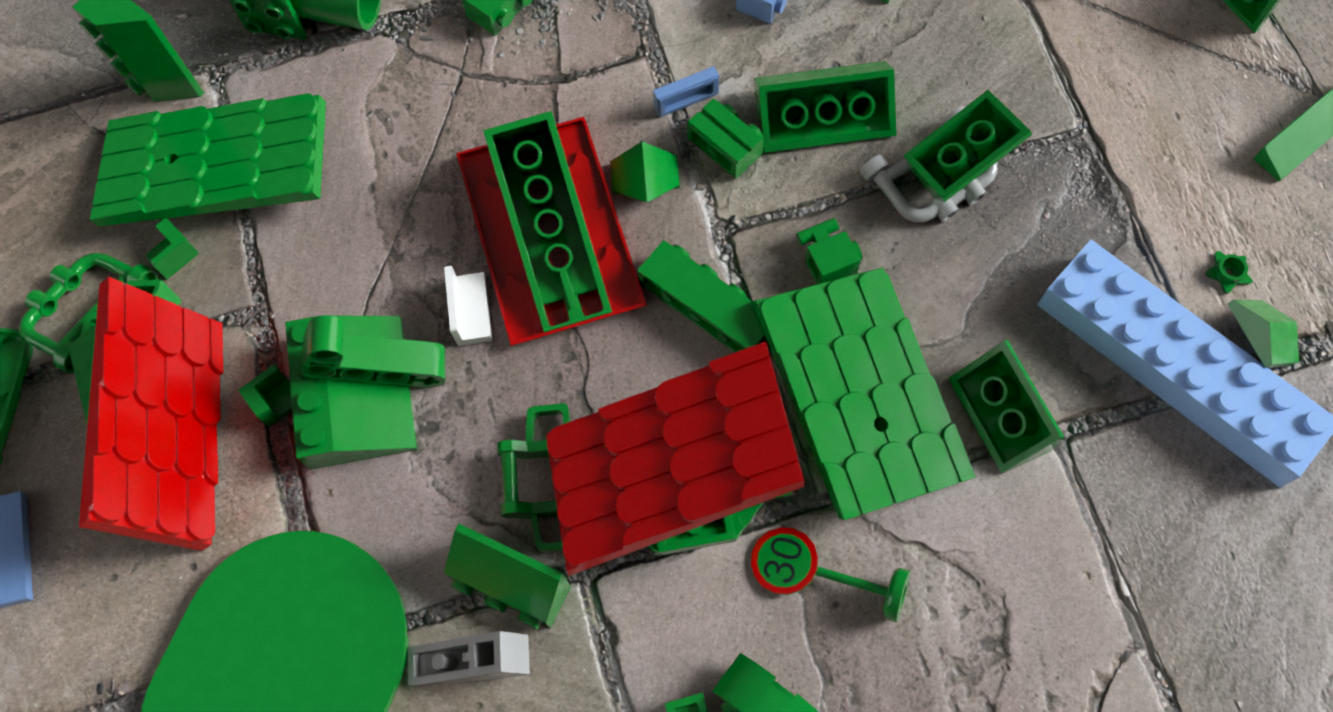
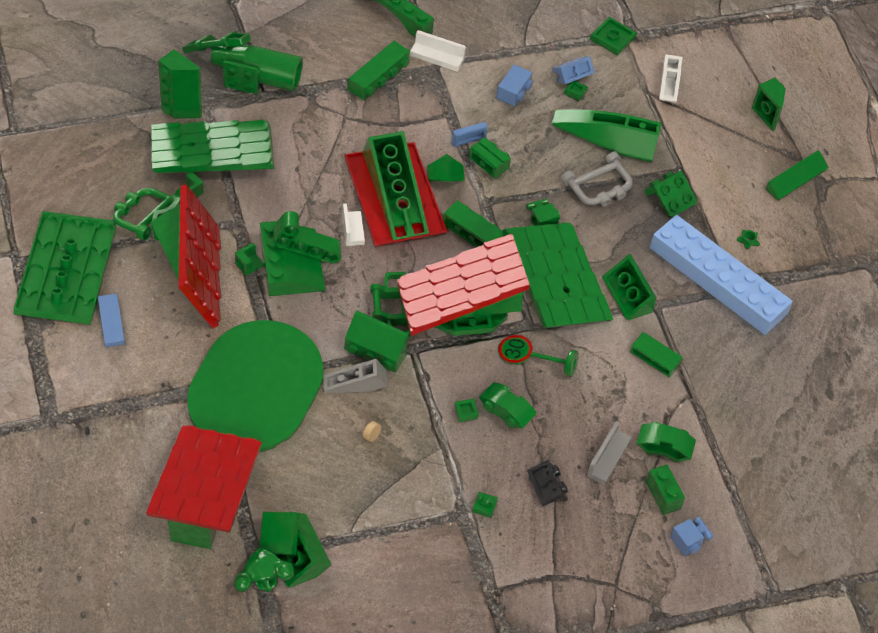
camera: 10 degrees left, 15 degrees down
(826, 106) = (543, 147): green slope -> none
(955, 61) = (612, 131): none -> green wedge
(966, 146) = (614, 166): green slope -> none
(1066, 556) = (656, 354): none -> green piece
(1076, 184) = (673, 193): none -> green bracket
(1269, 332) = (763, 264): slope -> none

